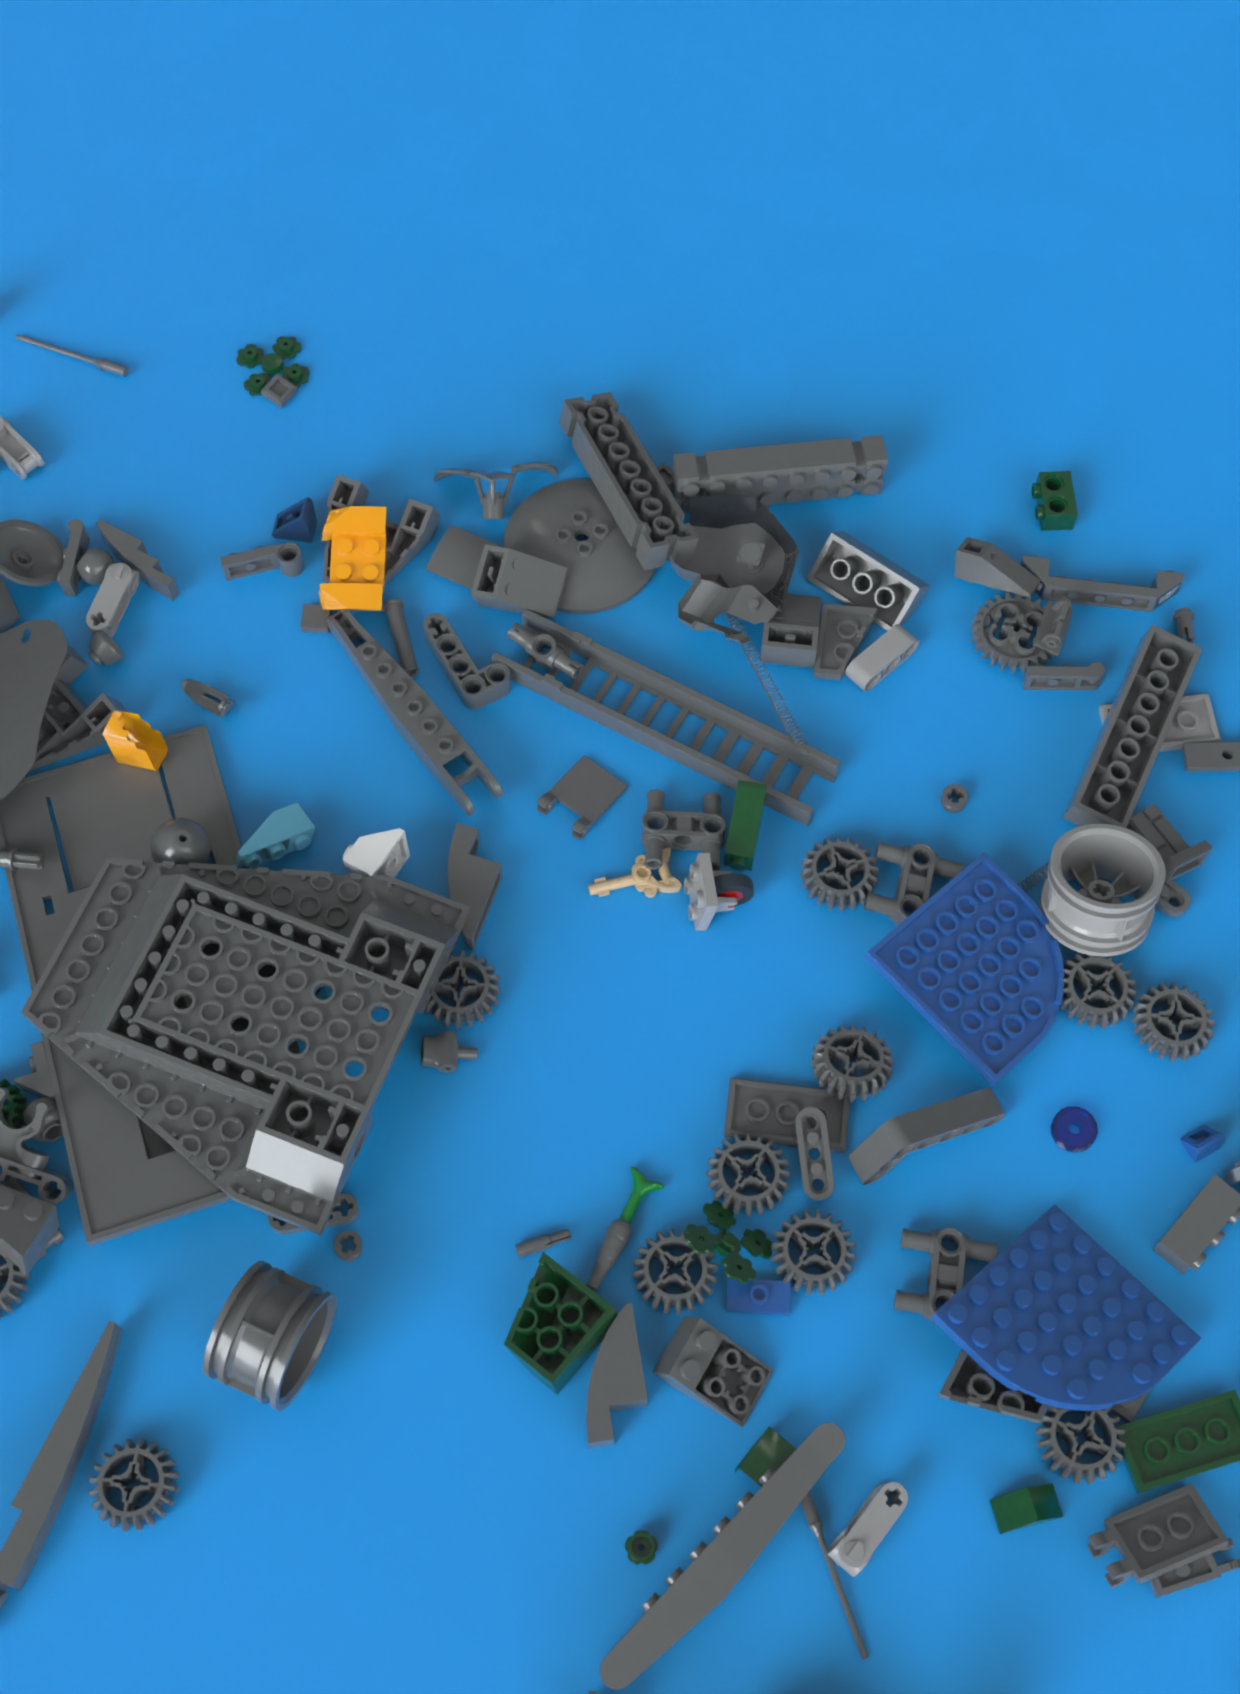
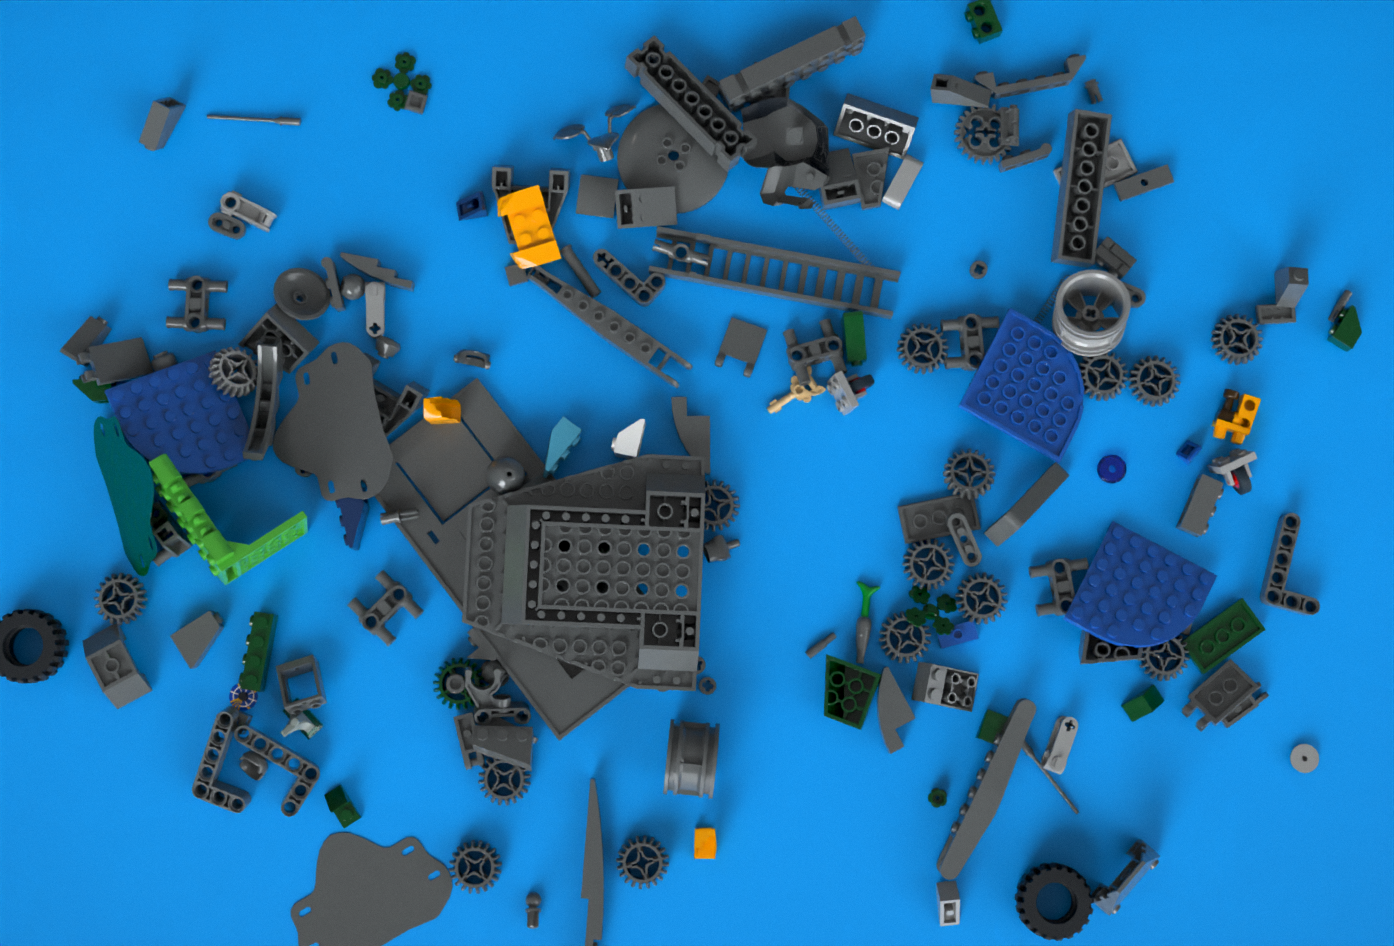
camera: 20 degrees left, 20 degrees up
(240, 1486) = (705, 843): none -> light orange piece
(264, 559) = (463, 242): dark grey plate -> none
(1186, 860) = (1136, 270): dark grey tile -> none

